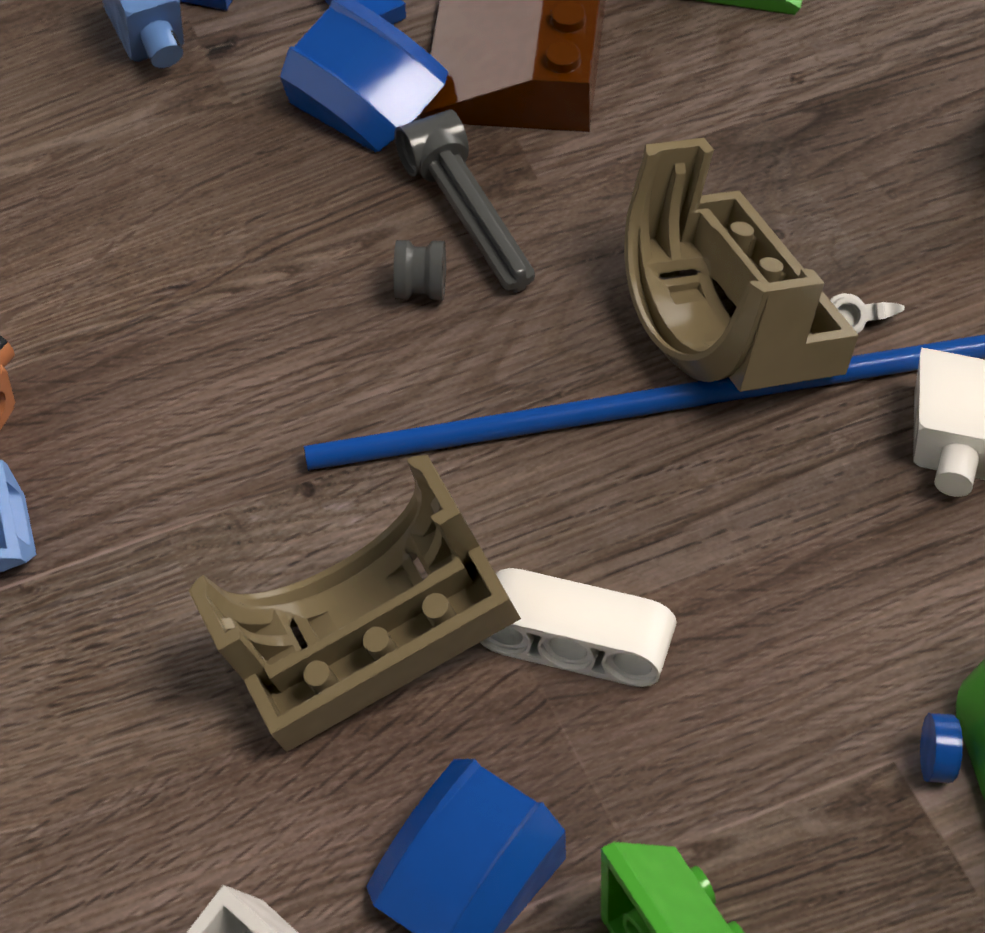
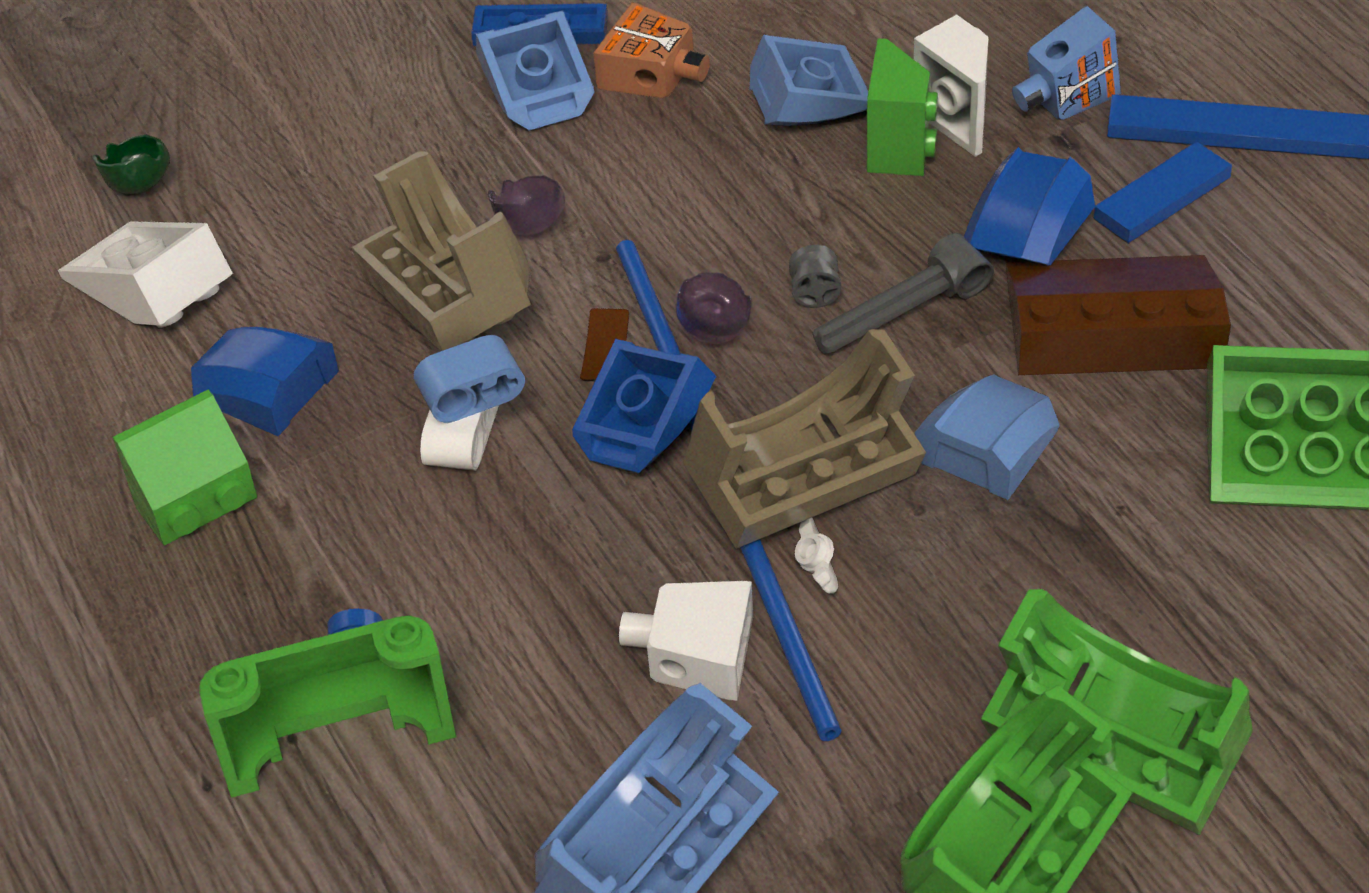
camera: 85 degrees right, 5 degrees down
(73, 246) = (805, 81): none -> medium blue slope
(149, 90) = (958, 71): none -> white slope
(173, 150) = (899, 113): none -> bright green slope
(216, 540) = (529, 204): none -> clear purple hair
(461, 366) = (712, 308): none -> clear purple hair
(488, 495) = (603, 329): none -> reddish brown sticker
(585, 583) = (469, 378): none -> medium blue beam
(626, 438) = (639, 405): none -> blue slope
(739, 143) = (989, 433): none -> medium blue slope

